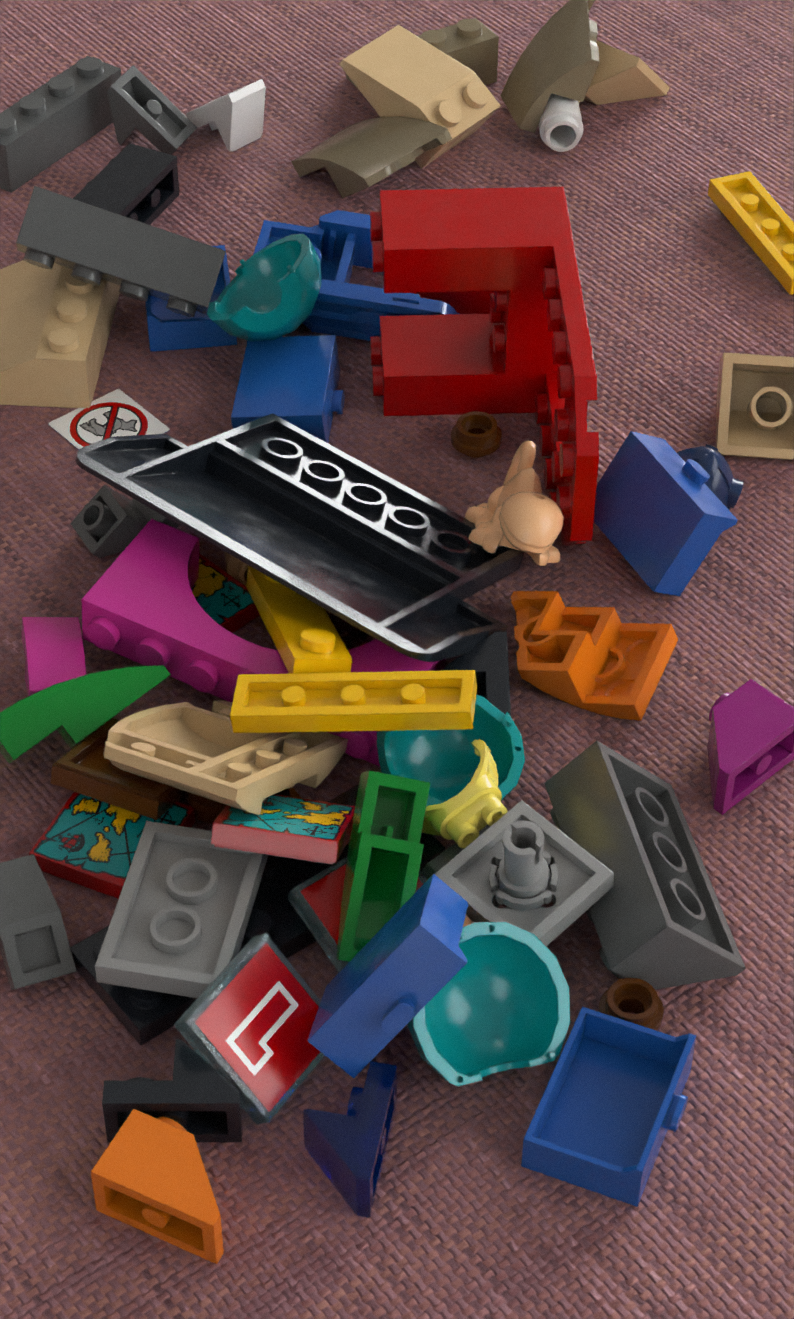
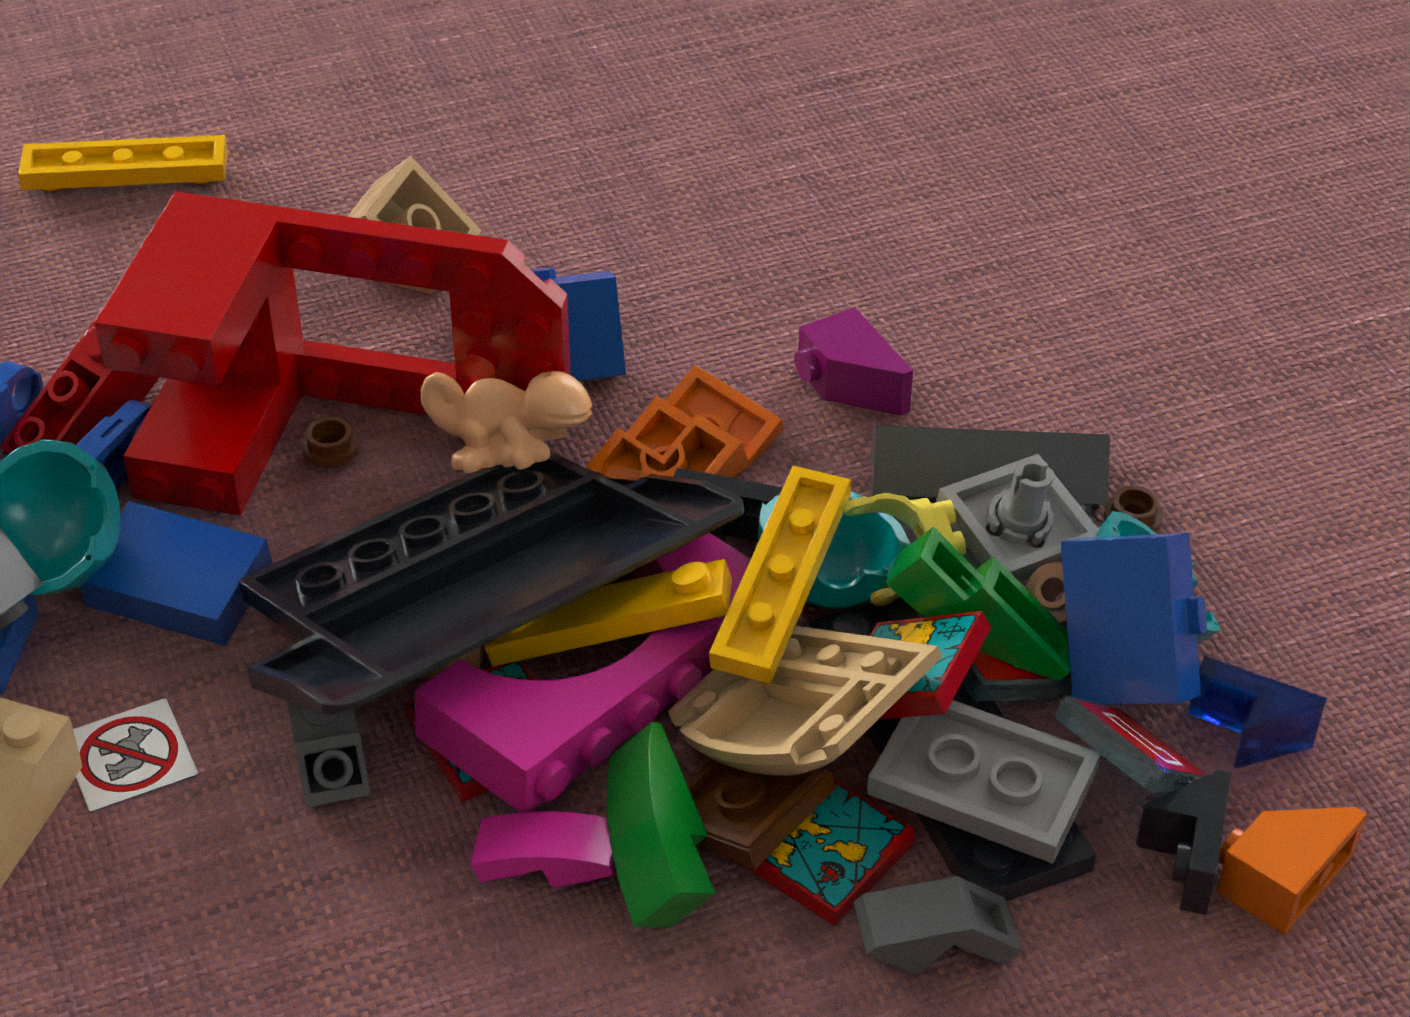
camera: 75 degrees left, 0 degrees up
(609, 1105) = (1246, 545): blue container -> none

